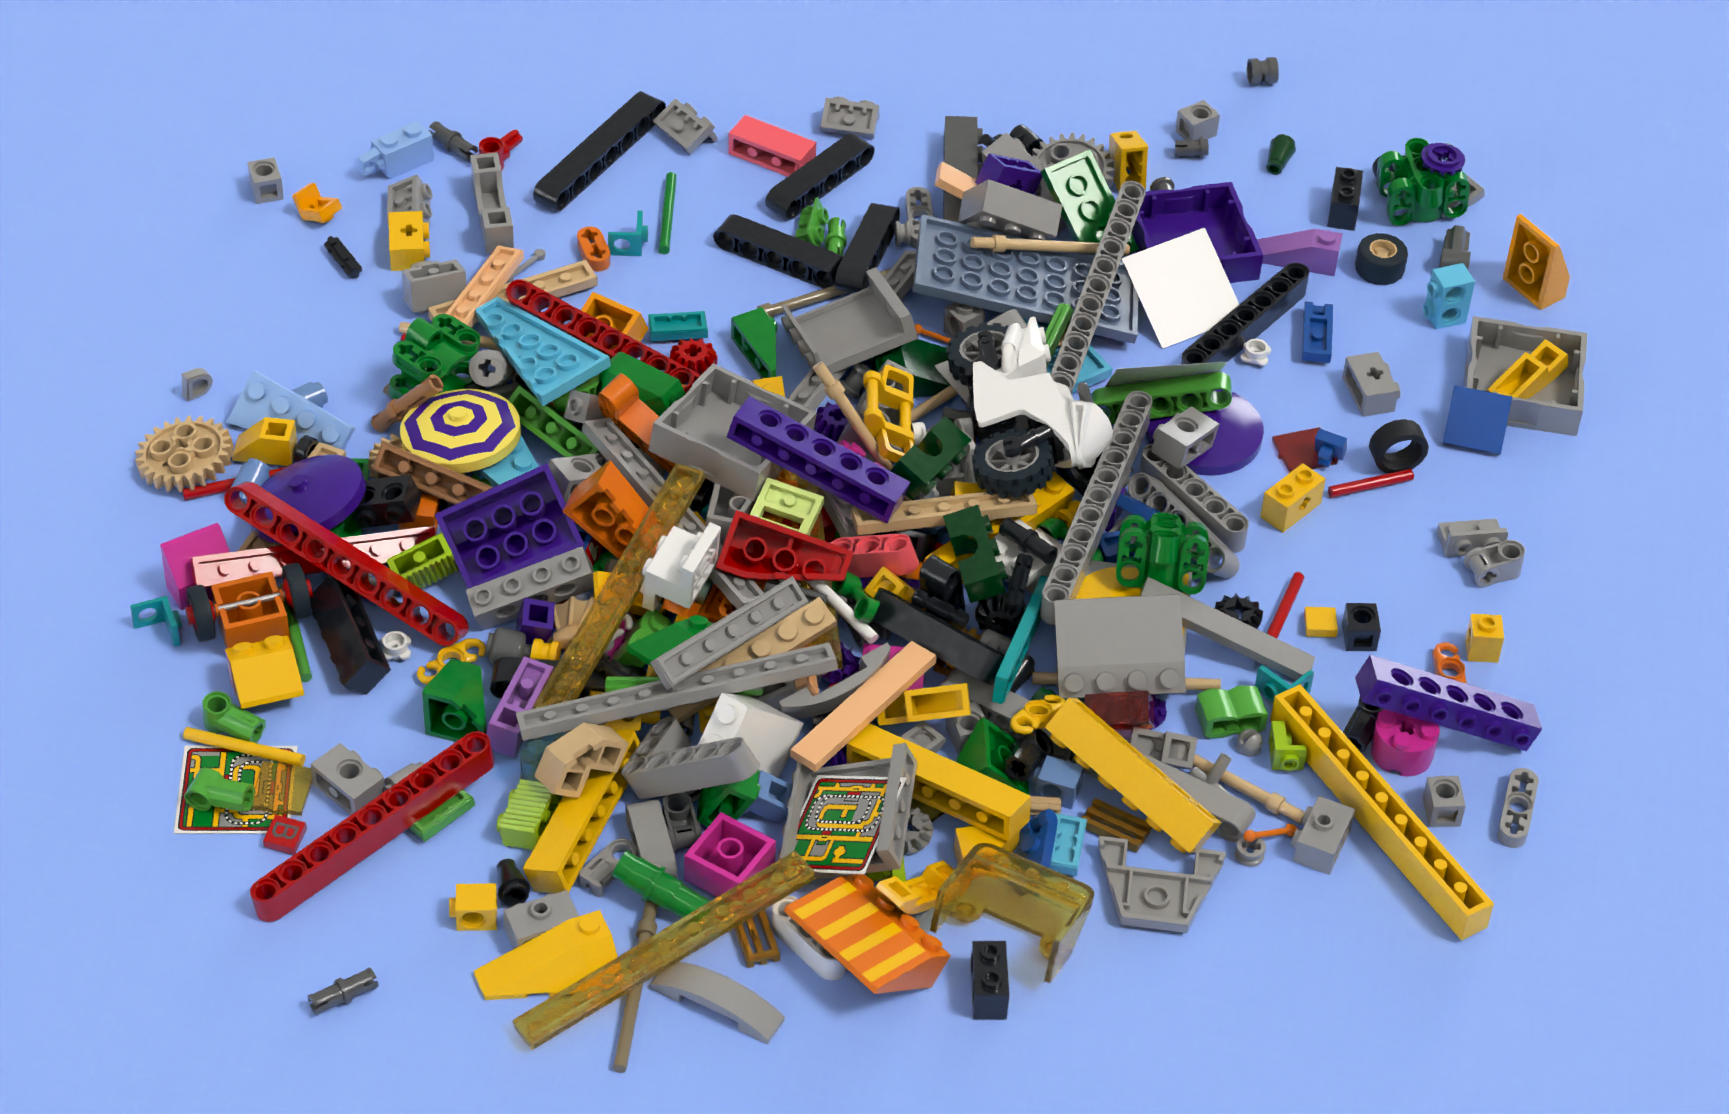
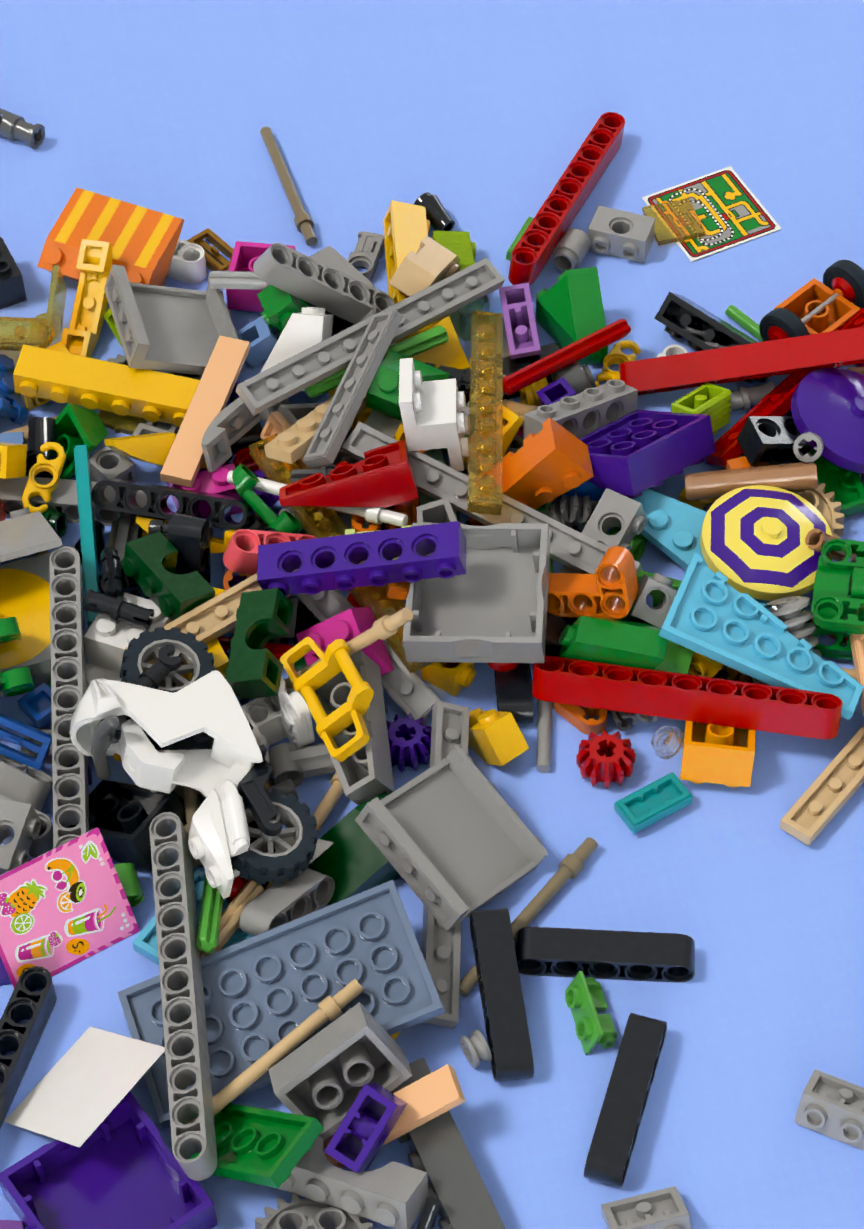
camera: 160 degrees right, 5 degrees up
(212, 789) = (721, 186): bright green piece -> none
(223, 716) = (767, 244): bright green piece -> none
(244, 746) = (729, 233): yellow bar -> none
(264, 671) = (757, 277): yellow slope -> none
(285, 834) = (640, 187): red tile -> none
(342, 991) = (497, 109): dark grey pin -> none
(372, 465) = (808, 436): none -> light grey bush
(474, 907) = (448, 182): yellow brick -> none
(502, 642) = (565, 356): none -> red axle
(535, 917) = (387, 183): light grey brick -> none
(549, 960) = (355, 180): yellow wedge -> none
(597, 248) = (818, 874): orange beam -> none
(634, 238) = (776, 903): teal bracket -> none
(657, 885) = (310, 234): green piece -> none
(662, 950) = (269, 194): clear yellow plate -> none
(667, 213) = (774, 969): green bar -> none
(722, 995) = (218, 190): light grey slope -> none
(749, 820) = (235, 280): none -> light grey axle
(756, 339) = (551, 813): green slope -> none
(770, 146) = (712, 1117): coral brick -> none
(836, 236) = (549, 1003): bright green pin -> none
(842, 822) = (173, 305): sticker -> none
(914, 210) = (470, 1109): light grey beam -> none

